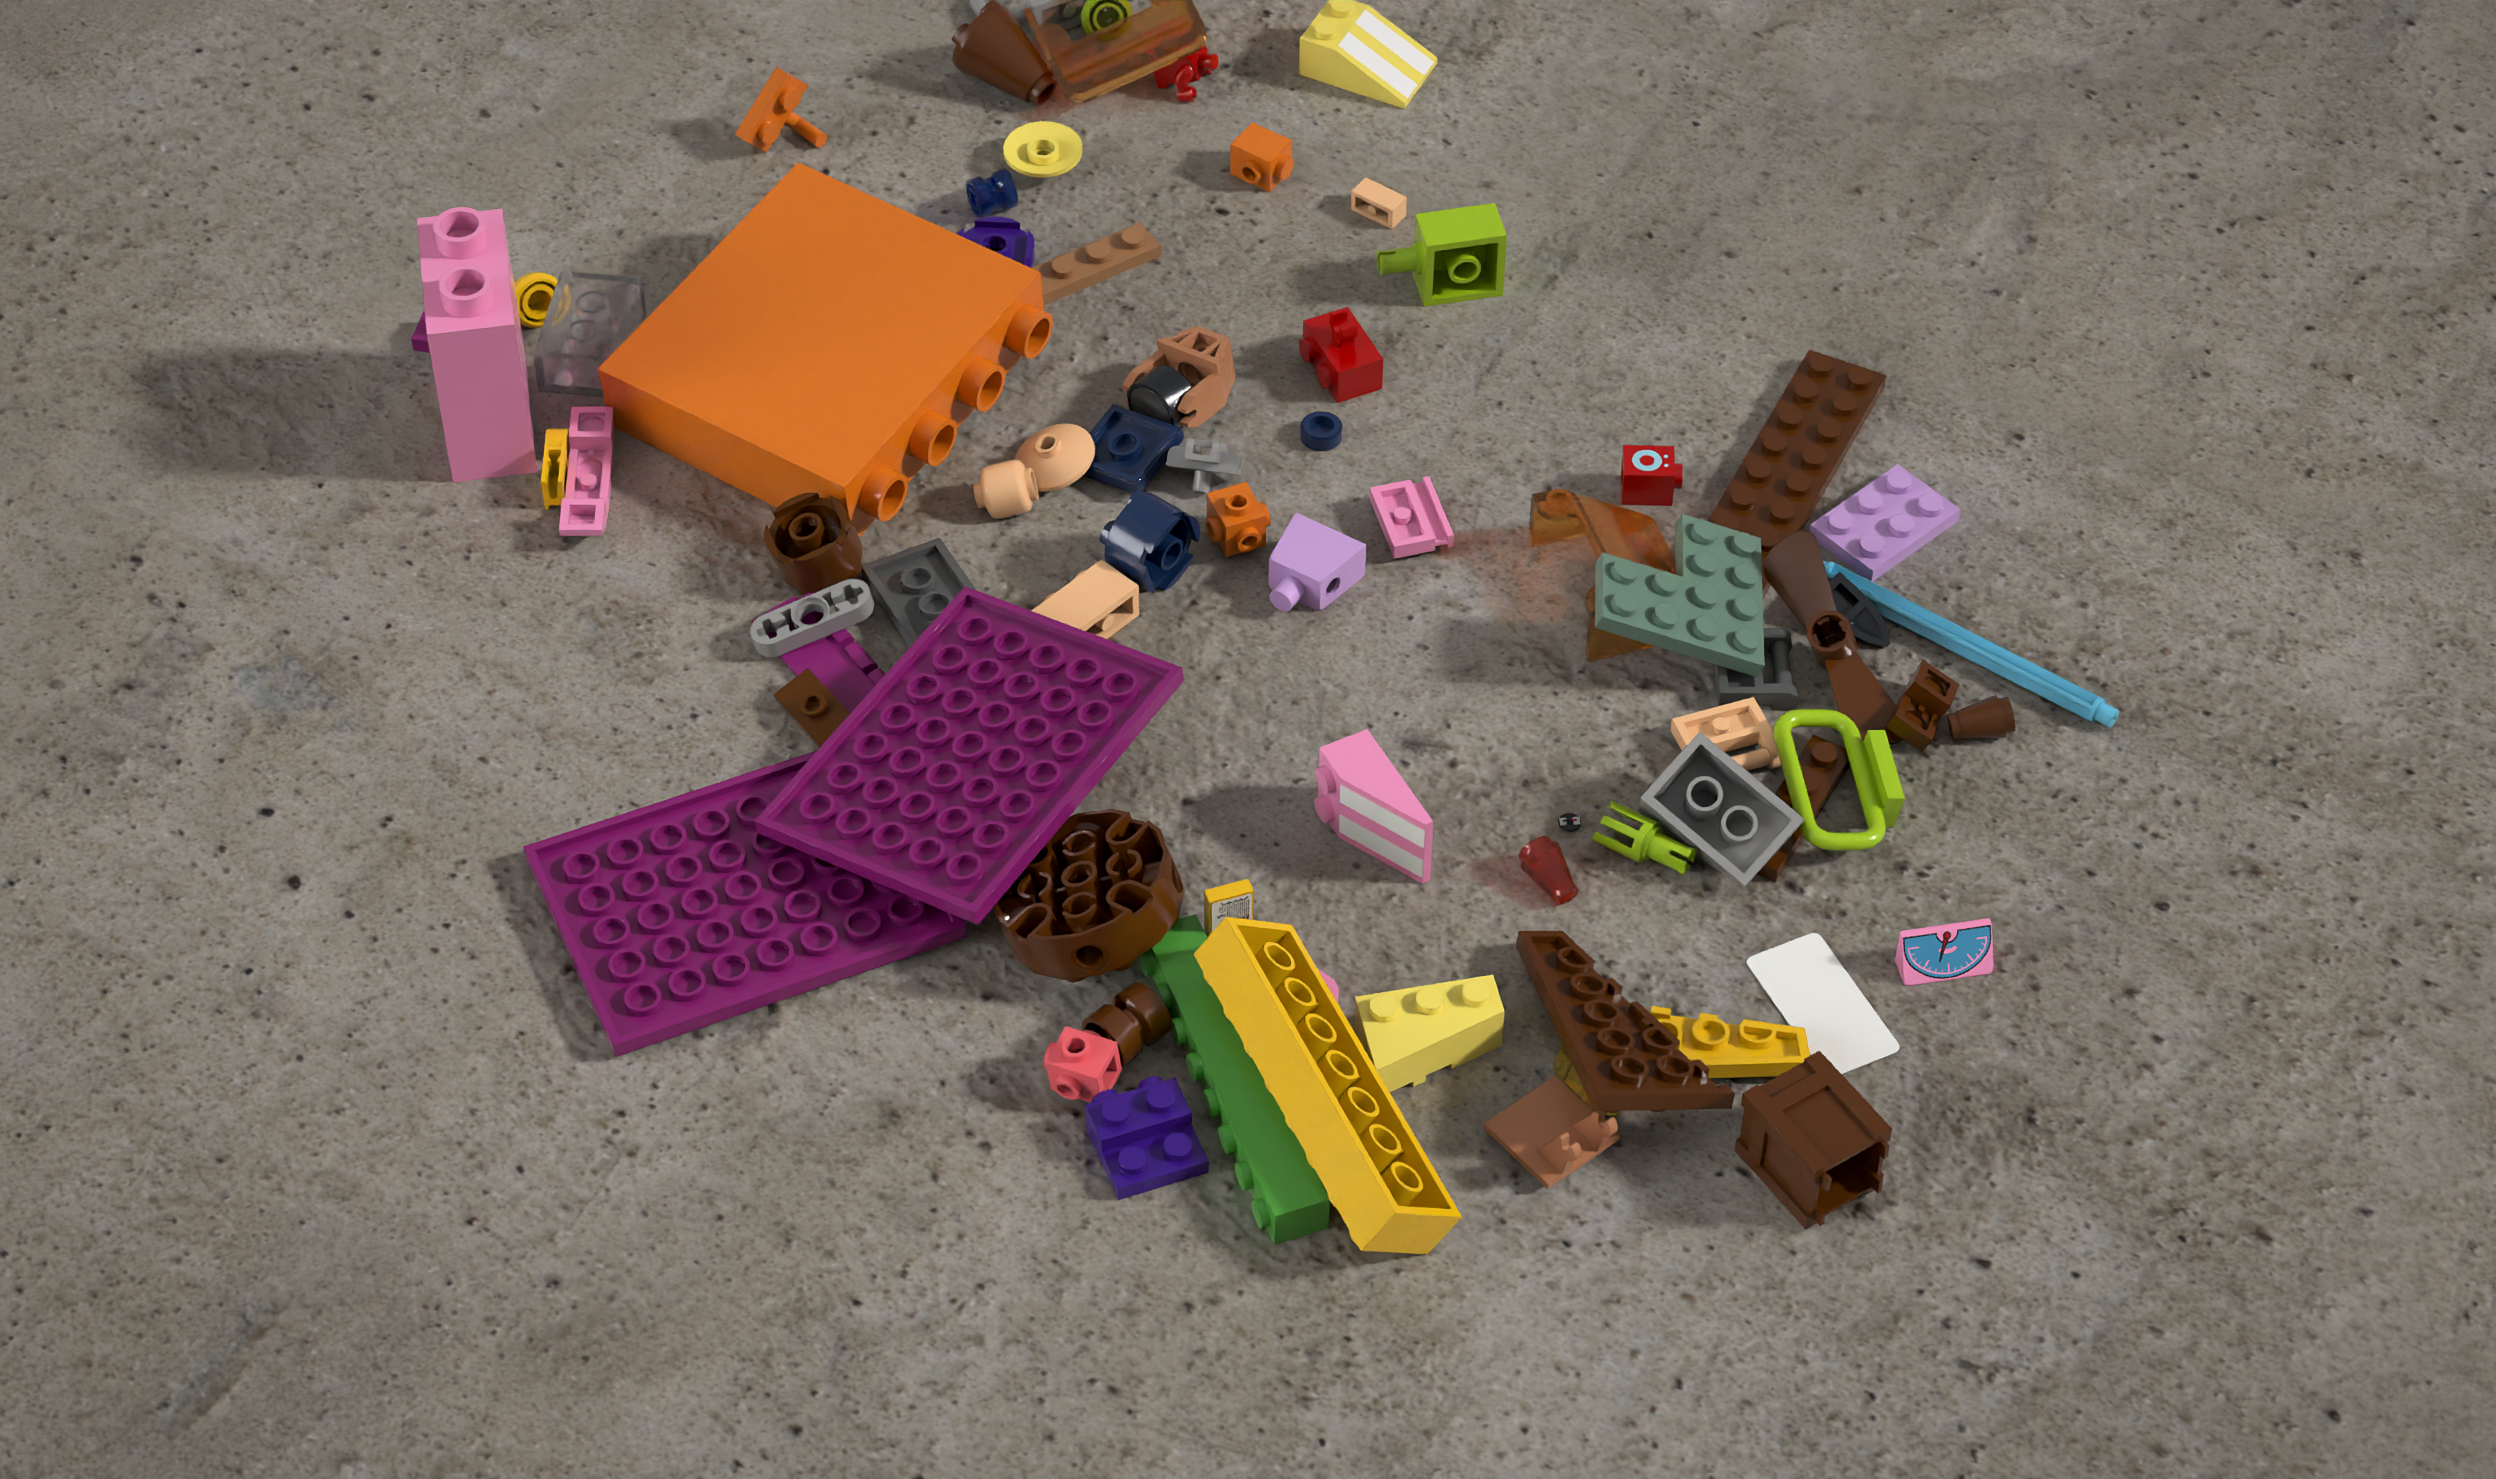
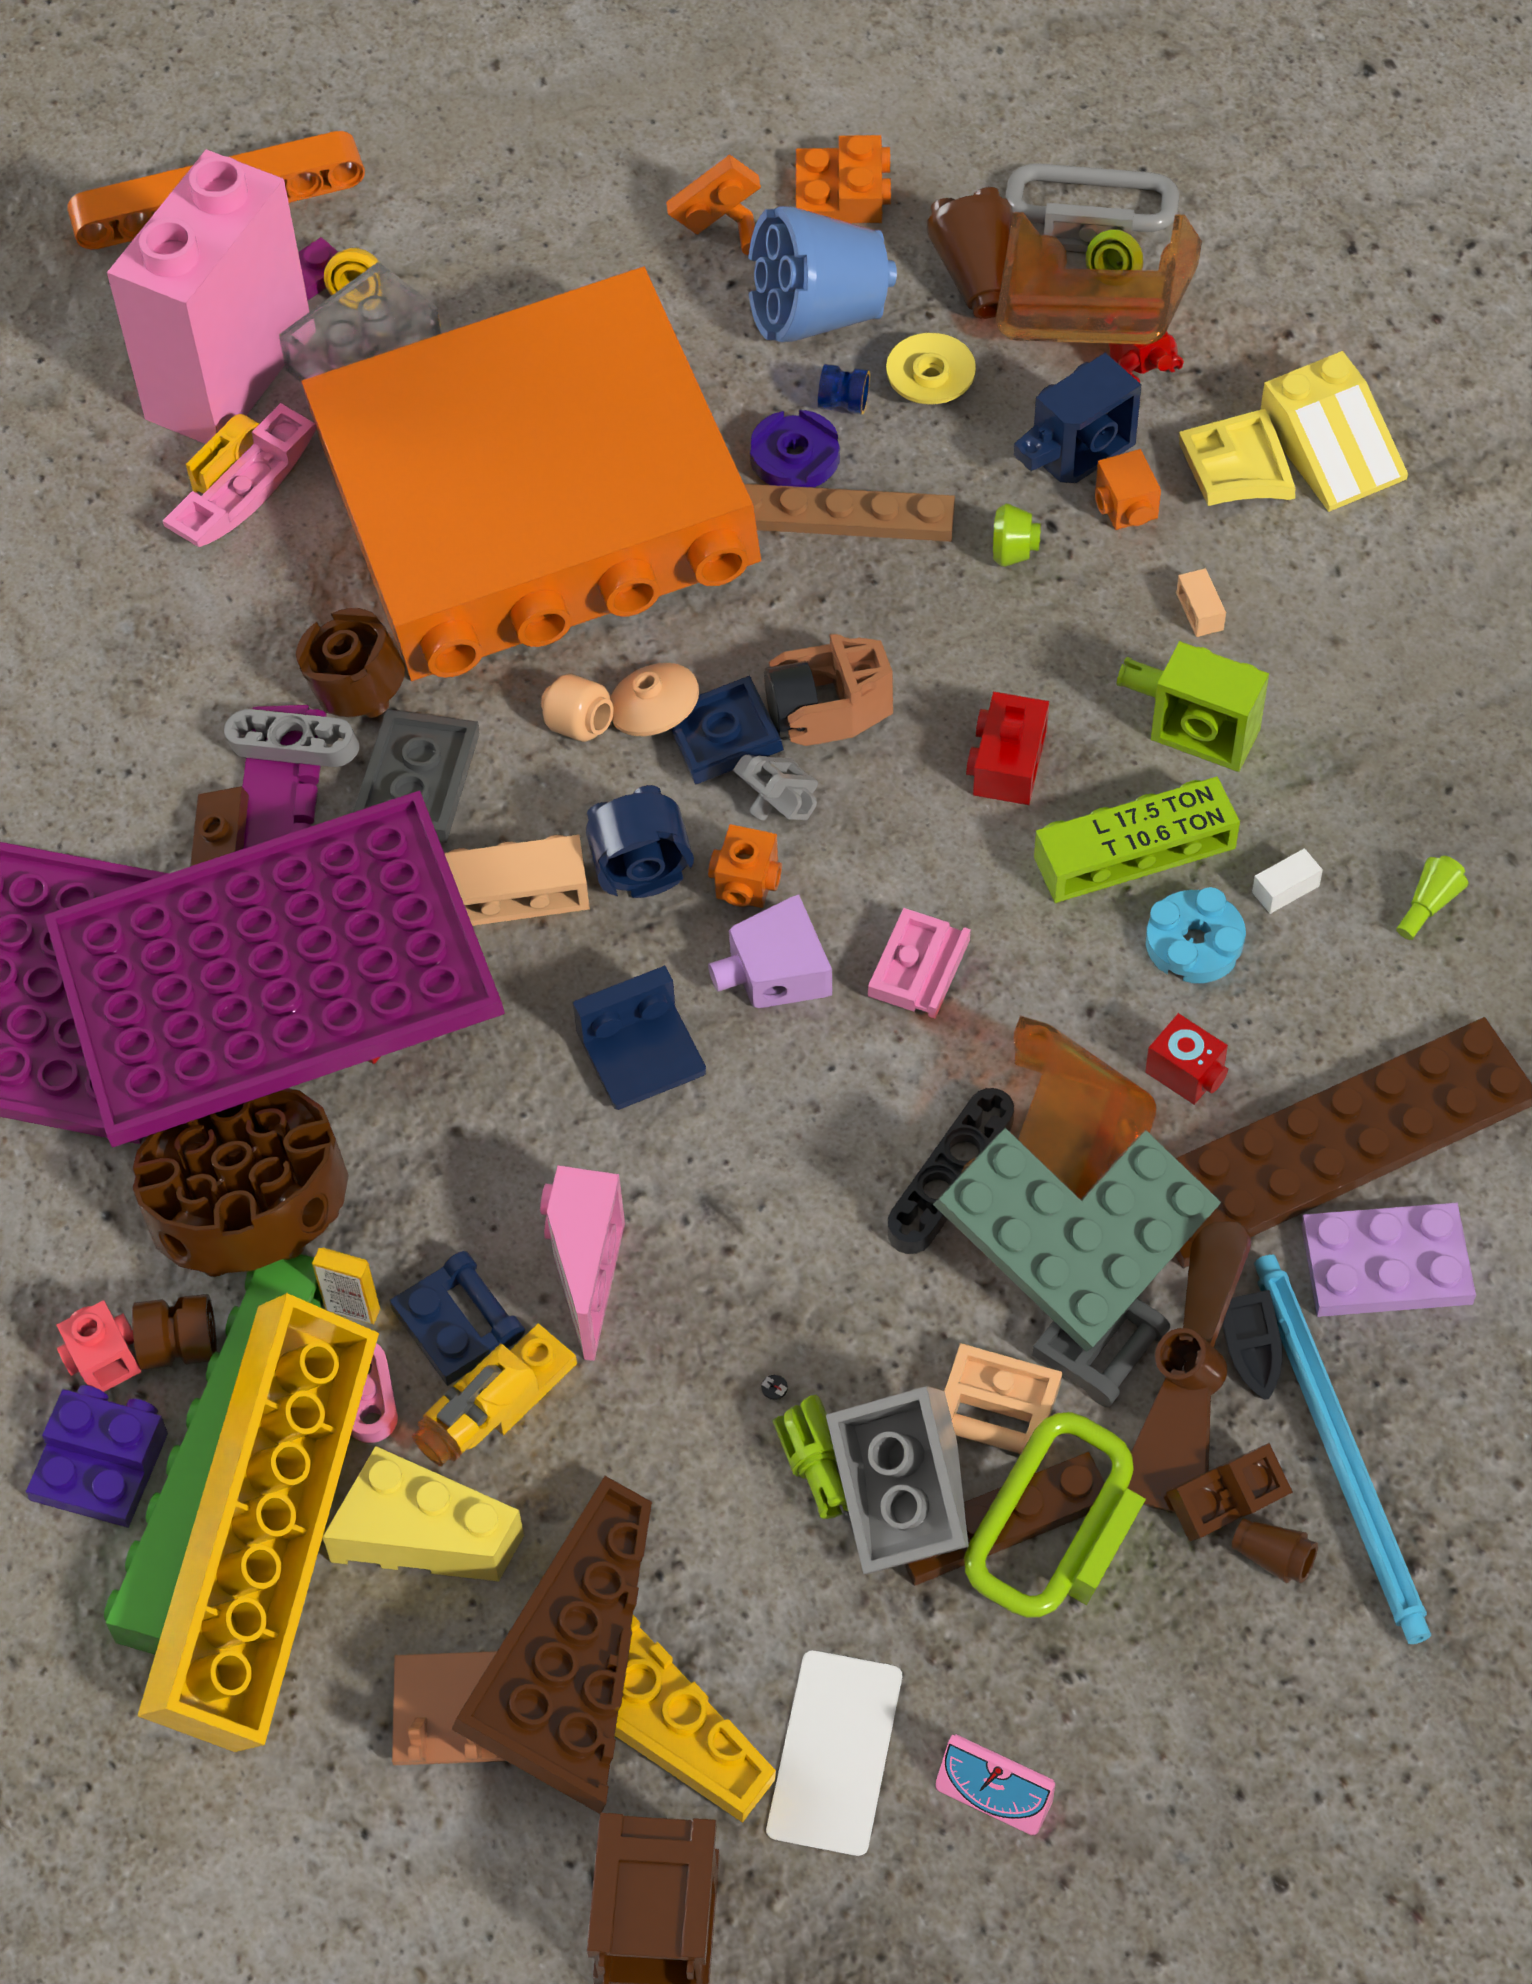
camera: 40 degrees right, 10 degrees up
(337, 307) = (307, 165): none -> orange beam
(849, 62) = (845, 180): none -> orange plate
(902, 124) = (815, 274): none -> medium blue cone
(1195, 122) = (1082, 421): none -> dark blue hinge
(1210, 224) = (1014, 535): none -> lime cone
(1266, 669) = (637, 1038): none -> dark blue bracket
(1314, 920) = (441, 1326): none -> dark blue plate
(1316, 102) = (1238, 459): none -> light yellow plate
(1321, 431) = (925, 817): dark blue tile -> none
(1392, 932) = (493, 1395): none -> yellow plate
(1482, 365) = (1136, 839): none -> lime brick
(1548, 869) = (699, 1427): clear red cone -> none
(1558, 628) = (945, 1167): none -> black beam
(1579, 386) = (1198, 910): none -> medium azure plate
(1604, 339) = (1287, 881): none -> white piece
(1705, 287) = (1438, 884): none -> lime cone

